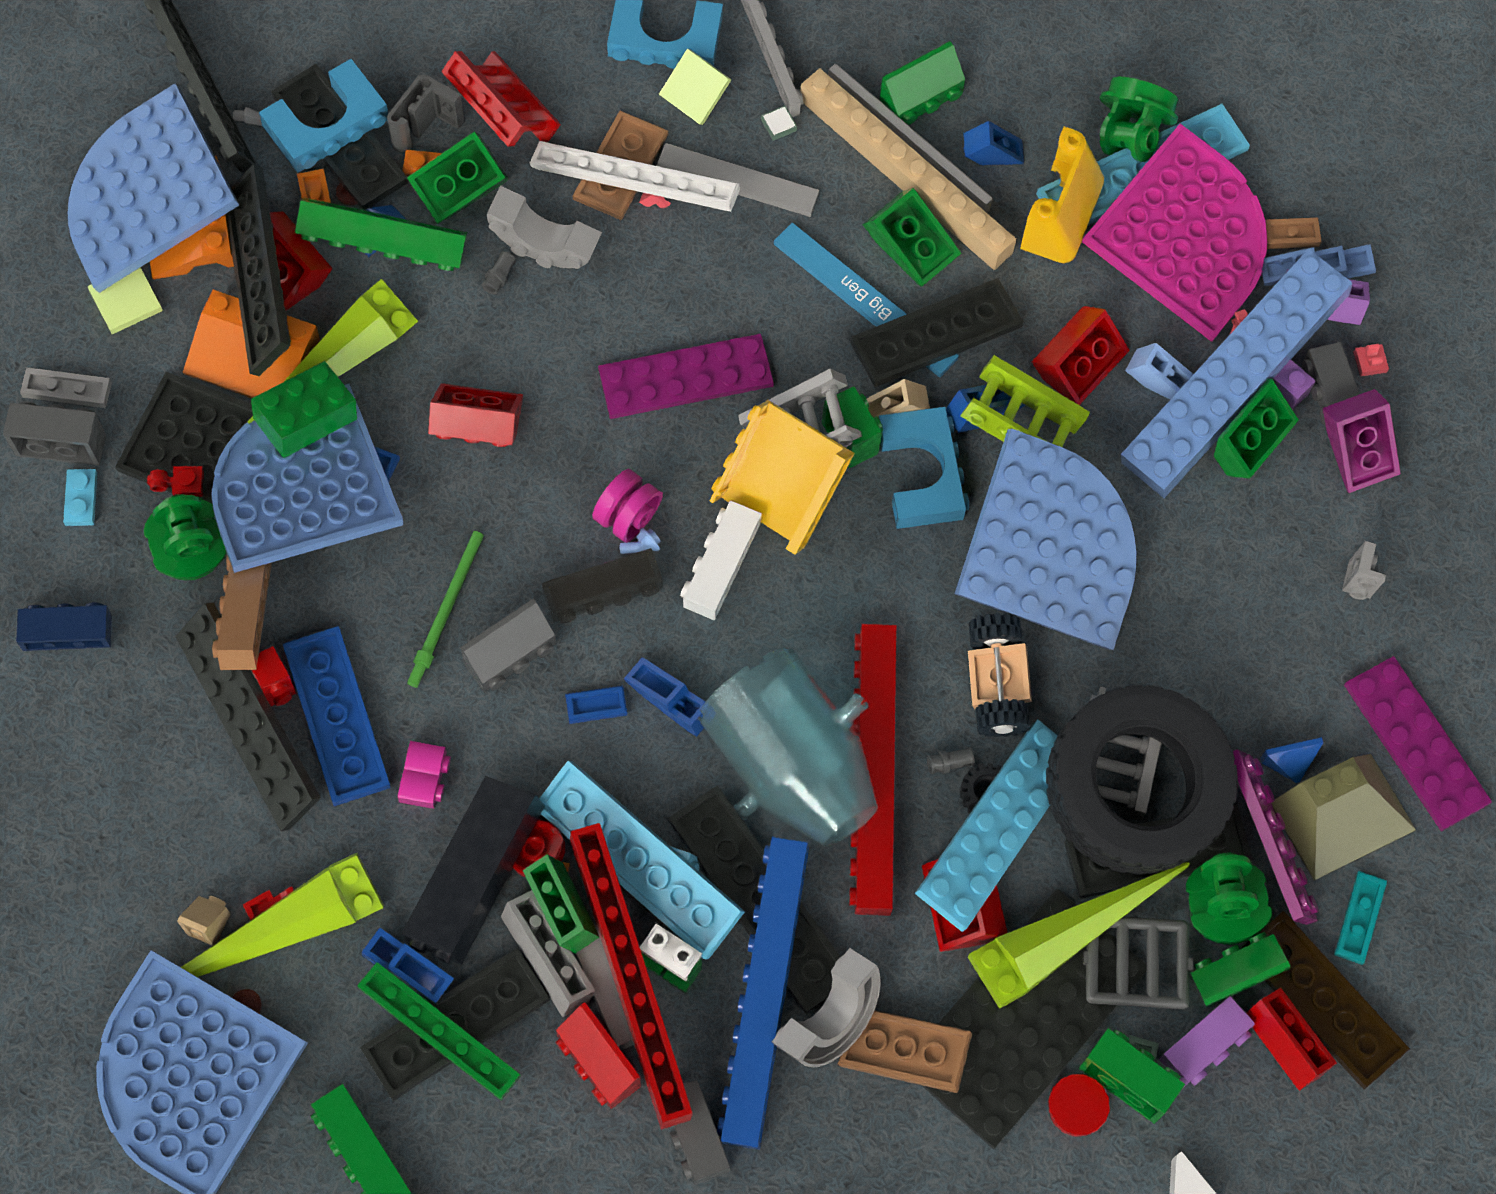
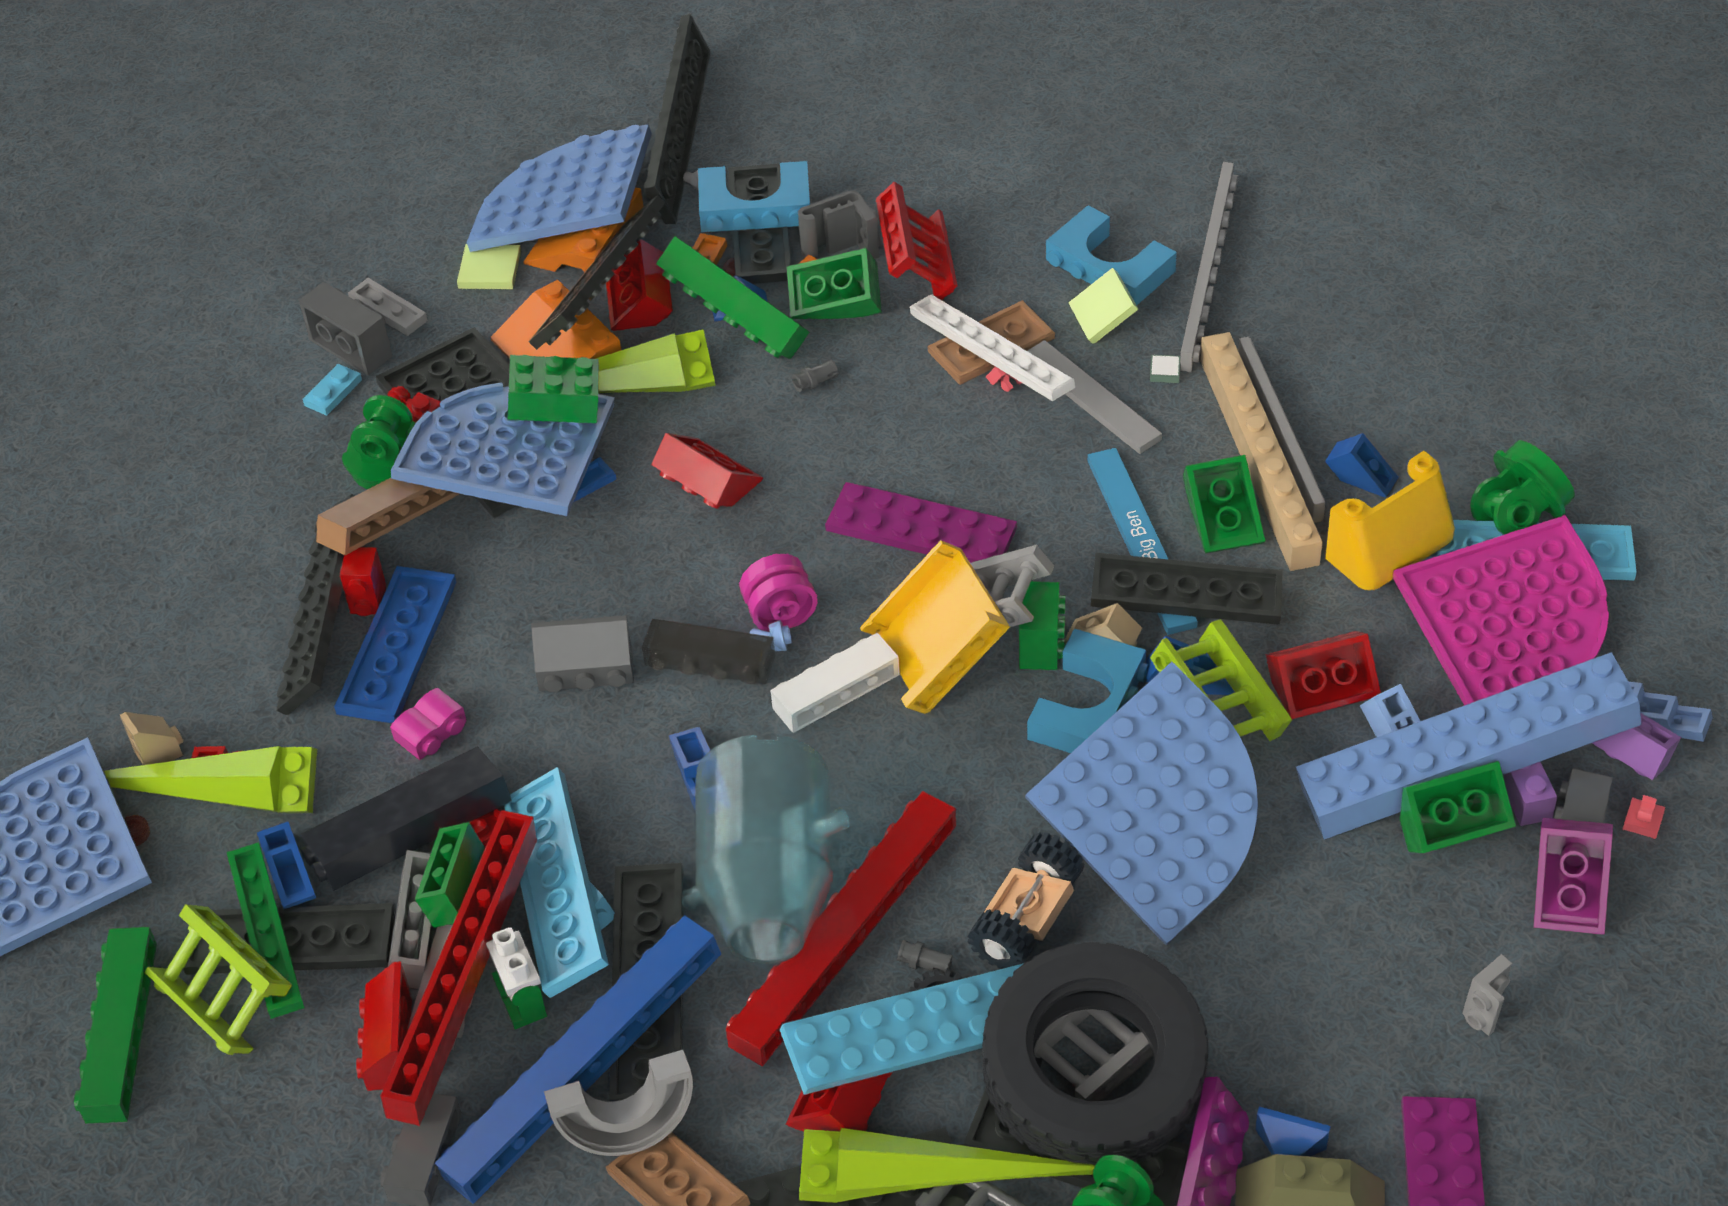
camera: 40 degrees right, 20 degrees down
(64, 627) = (236, 472): dark blue brick -> none
(424, 657) = (509, 636): bright green bar -> none
(441, 1067) = (244, 963): none -> lime fence
(538, 238) = (863, 353): light grey brick -> none
(596, 704) = (628, 747): blue tile -> none
(923, 84) = (1323, 384): green slope -> none
(1293, 233) = (1638, 666): medium nougat plate -> none

